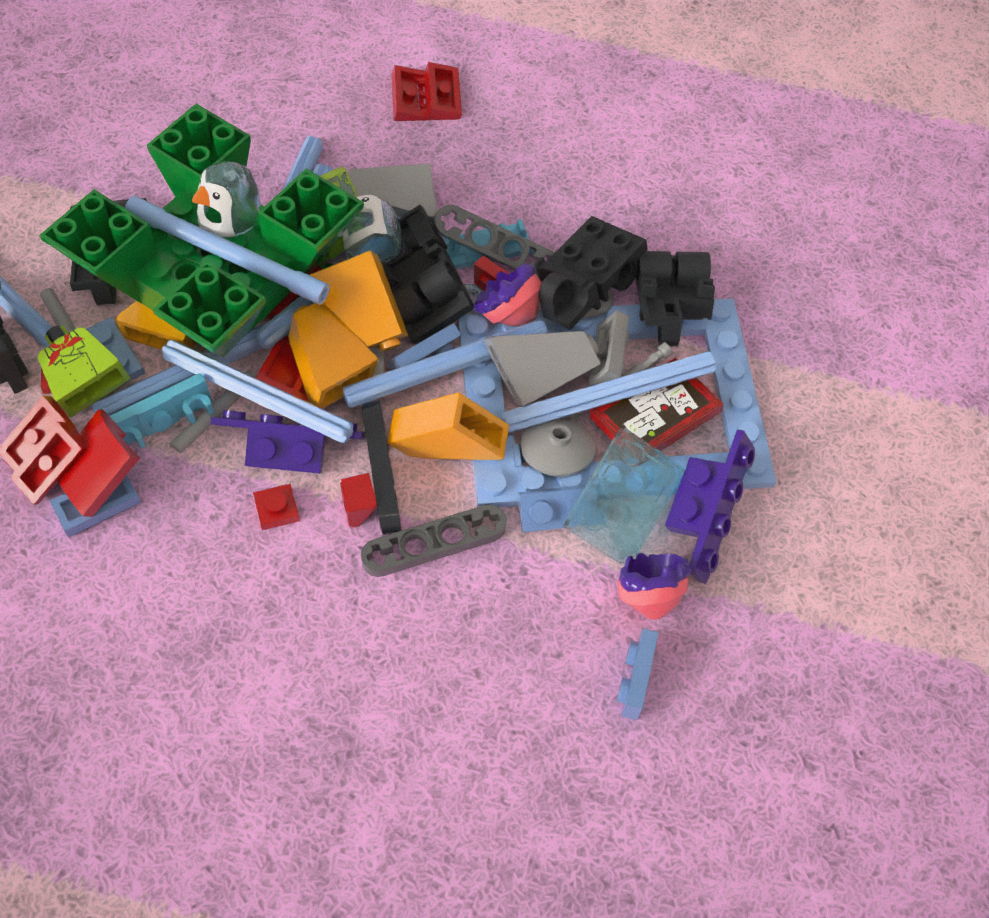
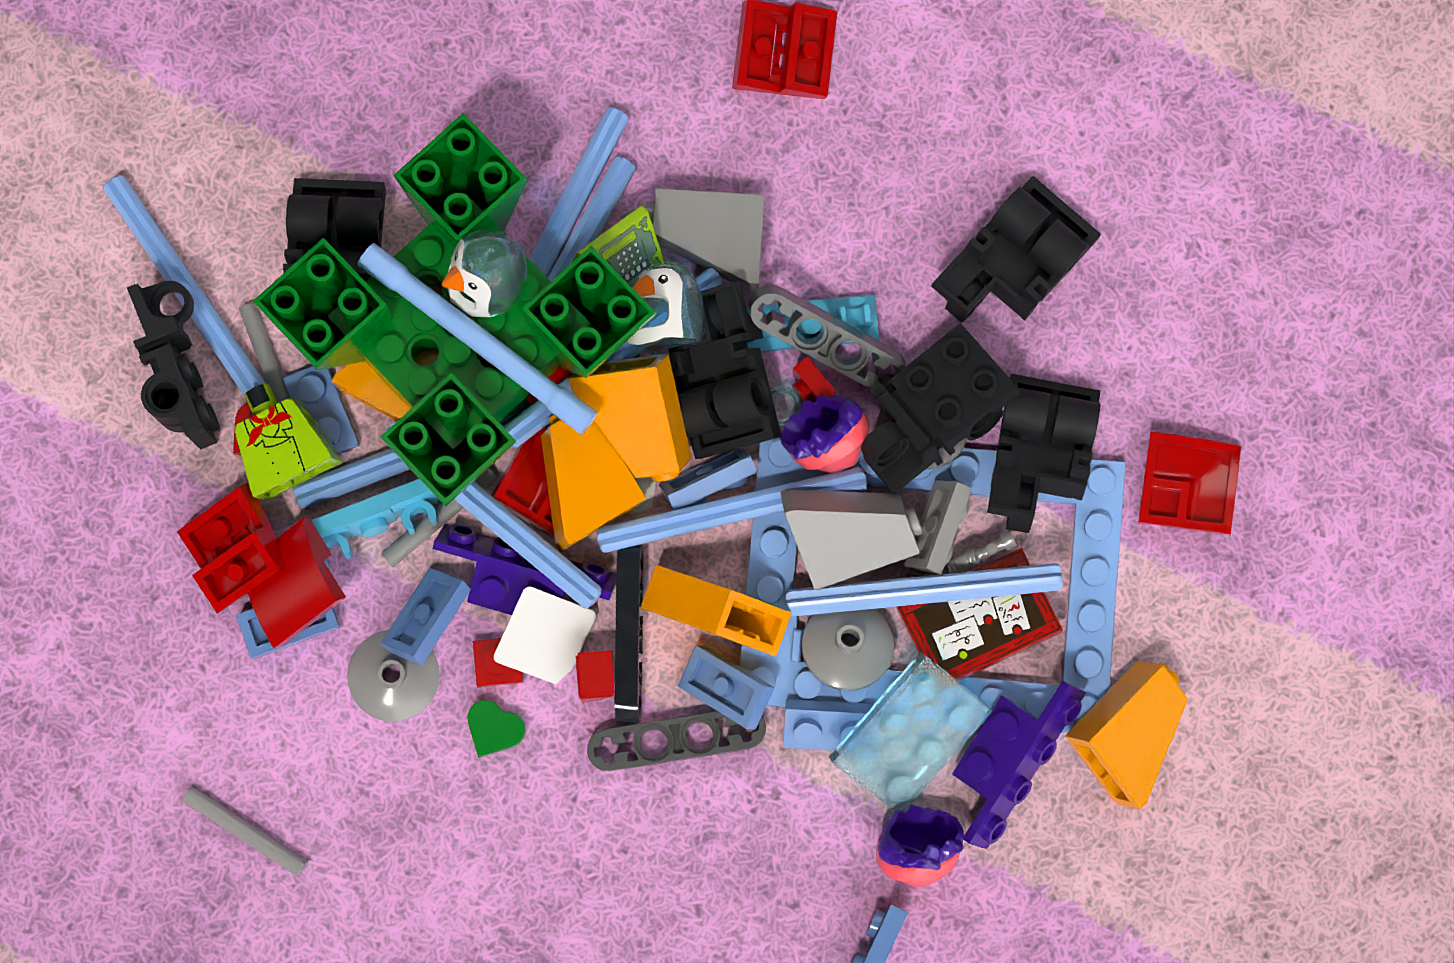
camera: 15 degrees right, 20 degrees up
(69, 674) = (244, 831): none -> light grey bar
(190, 547) = (390, 700): none -> light grey dish
(211, 477) = (425, 616): none -> medium blue plate
(280, 557) = (494, 729): none -> green tile
(311, 476) = (544, 635): none -> white sticker
(468, 488) = (726, 687): none -> medium blue plate
(618, 180) = (1017, 254): none -> black plate
(784, 305) = (1190, 483): none -> red plate
(797, 473) = (1131, 731): none -> light orange slope

